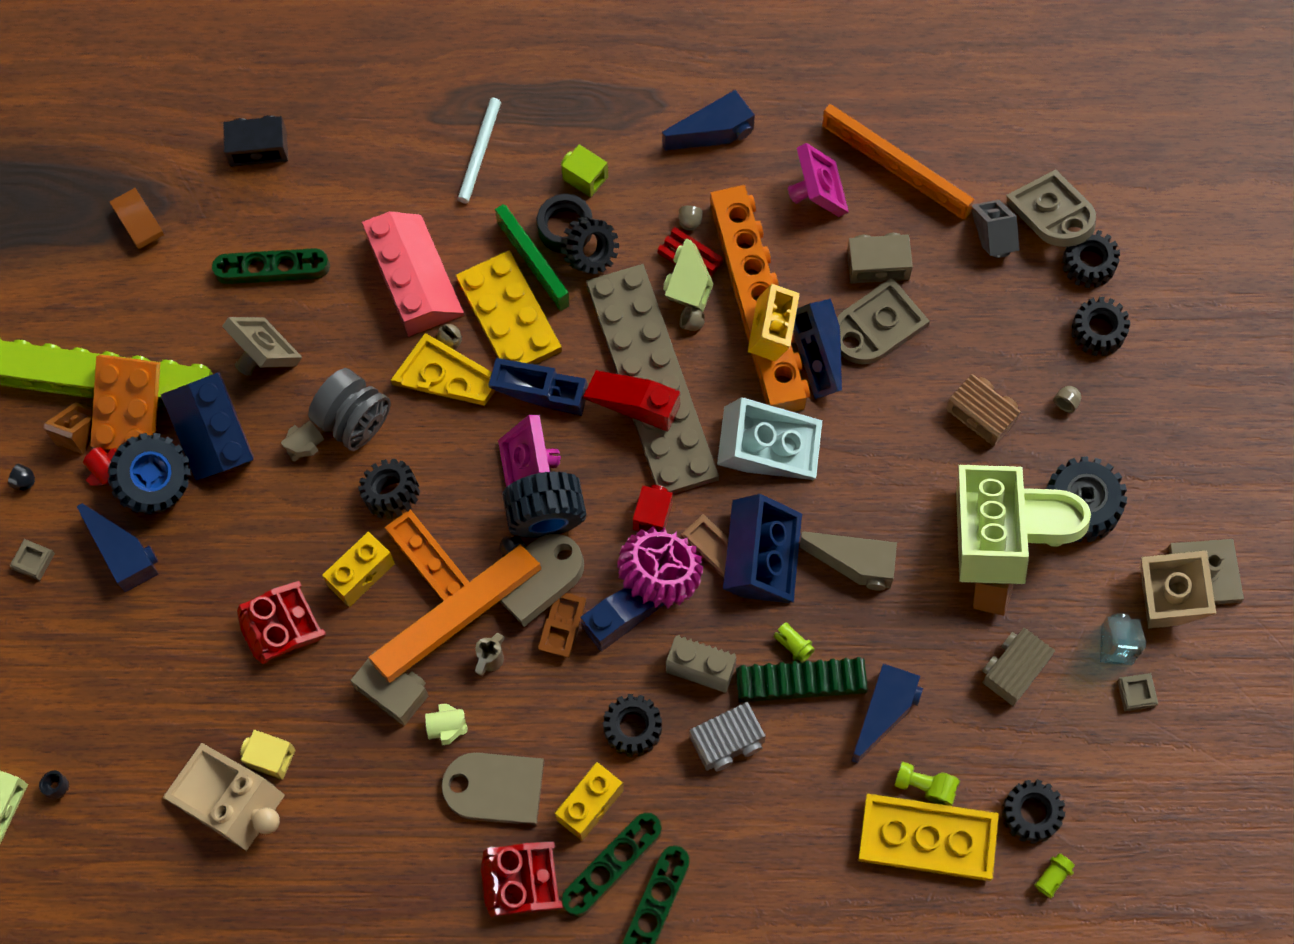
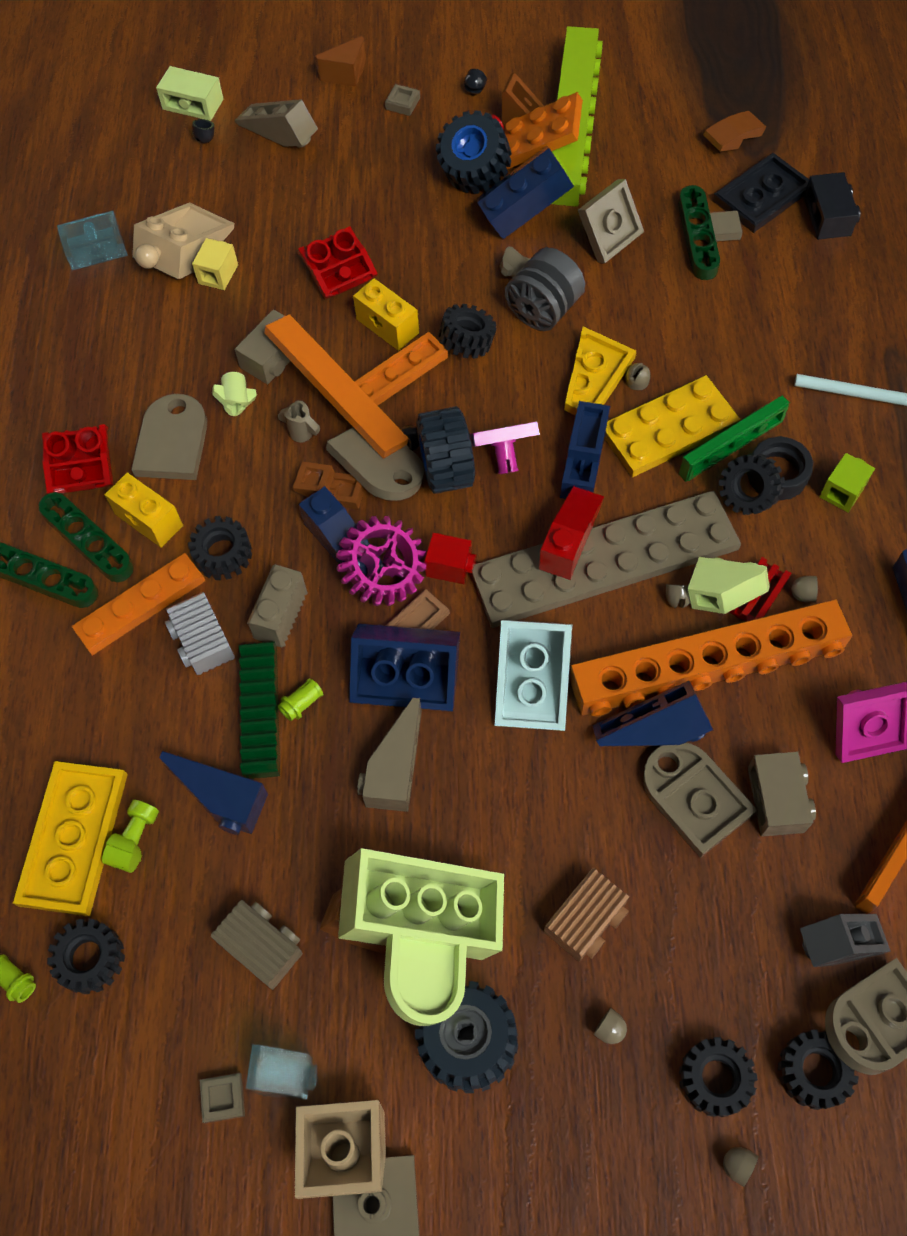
camera: 90 degrees right, 5 degrees down
(55, 698) = (280, 121): none -> dark tan slope
(123, 552) = (407, 148): dark blue slope -> none
(218, 898) = (92, 240): none -> clear light blue brick
(222, 201) = (762, 192): none -> black tile
(265, 238) = (726, 225): none -> dark tan tile
(412, 271) = (705, 336): coral slope -> none
(689, 803) = (138, 603): none -> orange plate
(773, 322) = (667, 654): yellow brick -> none
(1160, 316) = (739, 1164): none -> dark tan hinge

